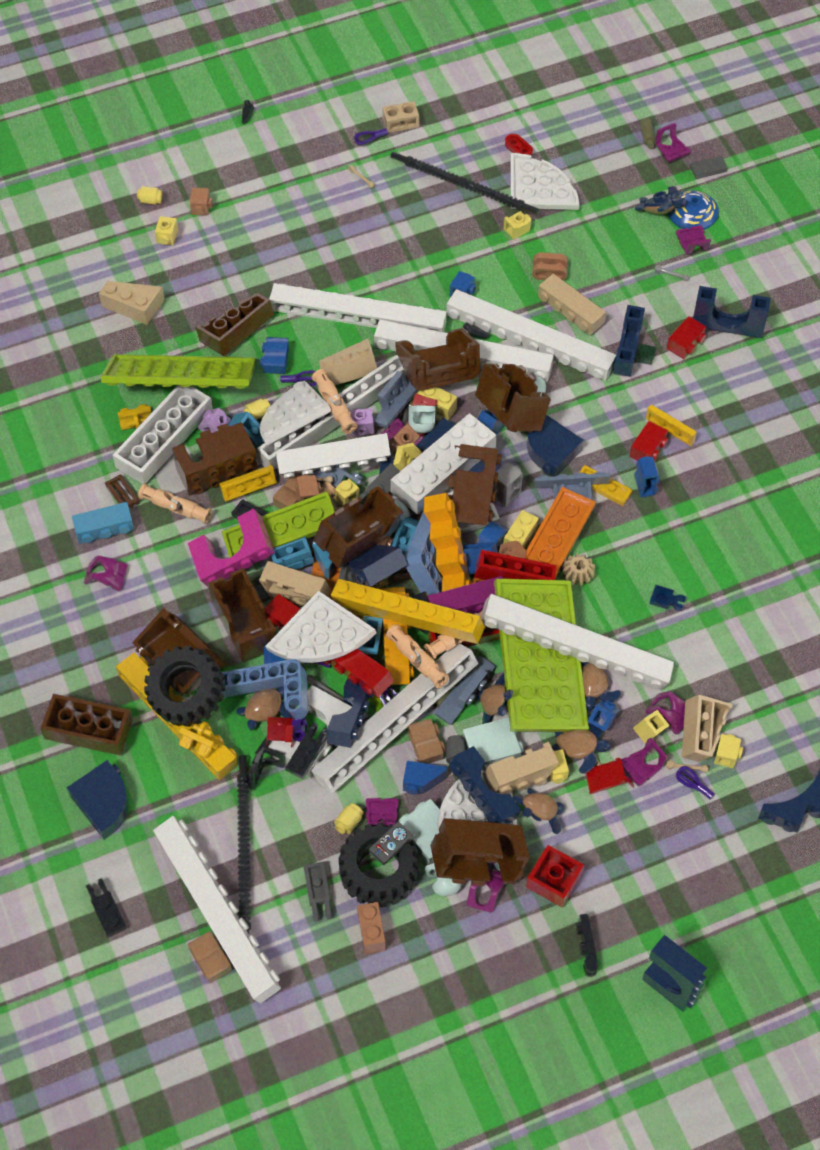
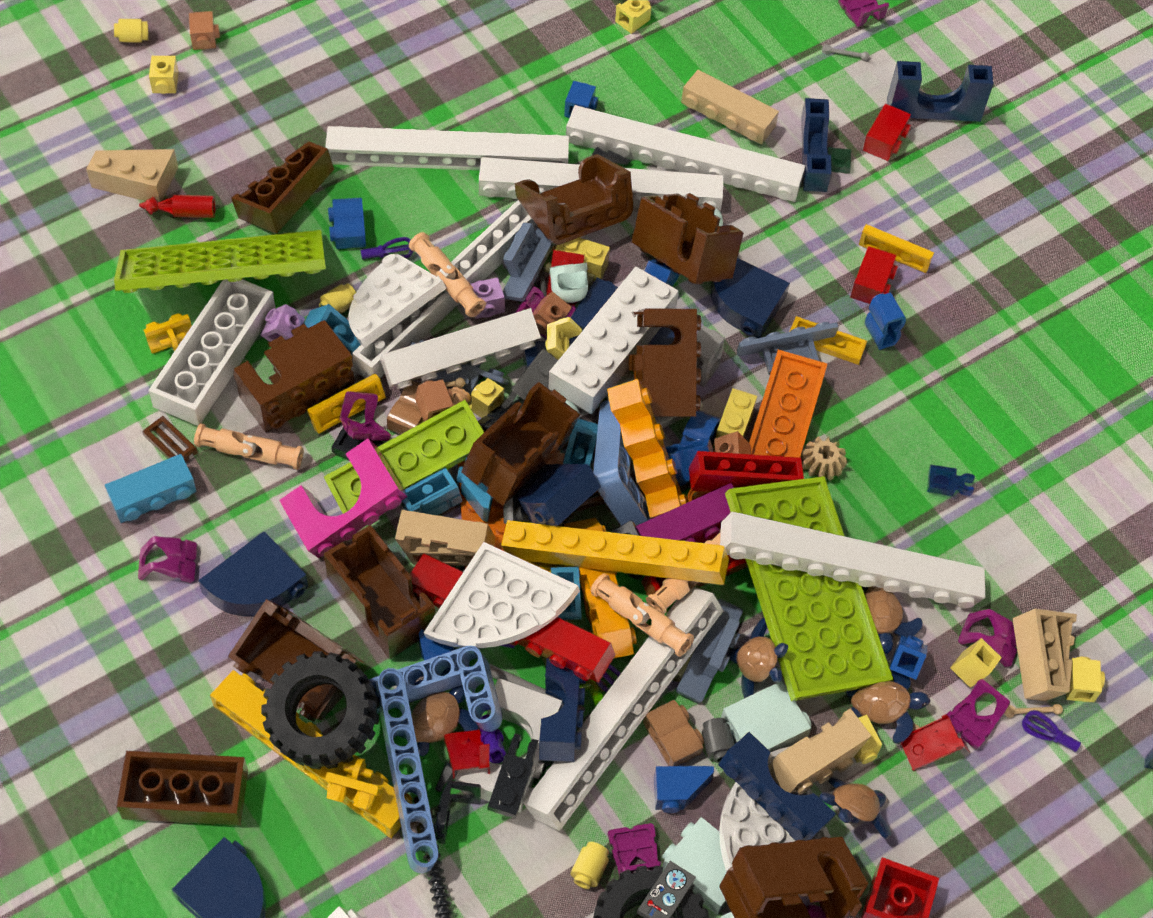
camera: 15 degrees left, 0 degrees up
(158, 591) = (252, 576): none -> dark blue brick
(162, 328) = (183, 206): none -> red wheel
(232, 743) = (403, 783): none -> medium blue beam
(260, 503) = (366, 430): none -> magenta piece
(350, 363) = (455, 219): tan wedge -> none
(549, 263) = (686, 59): nougat brick -> none

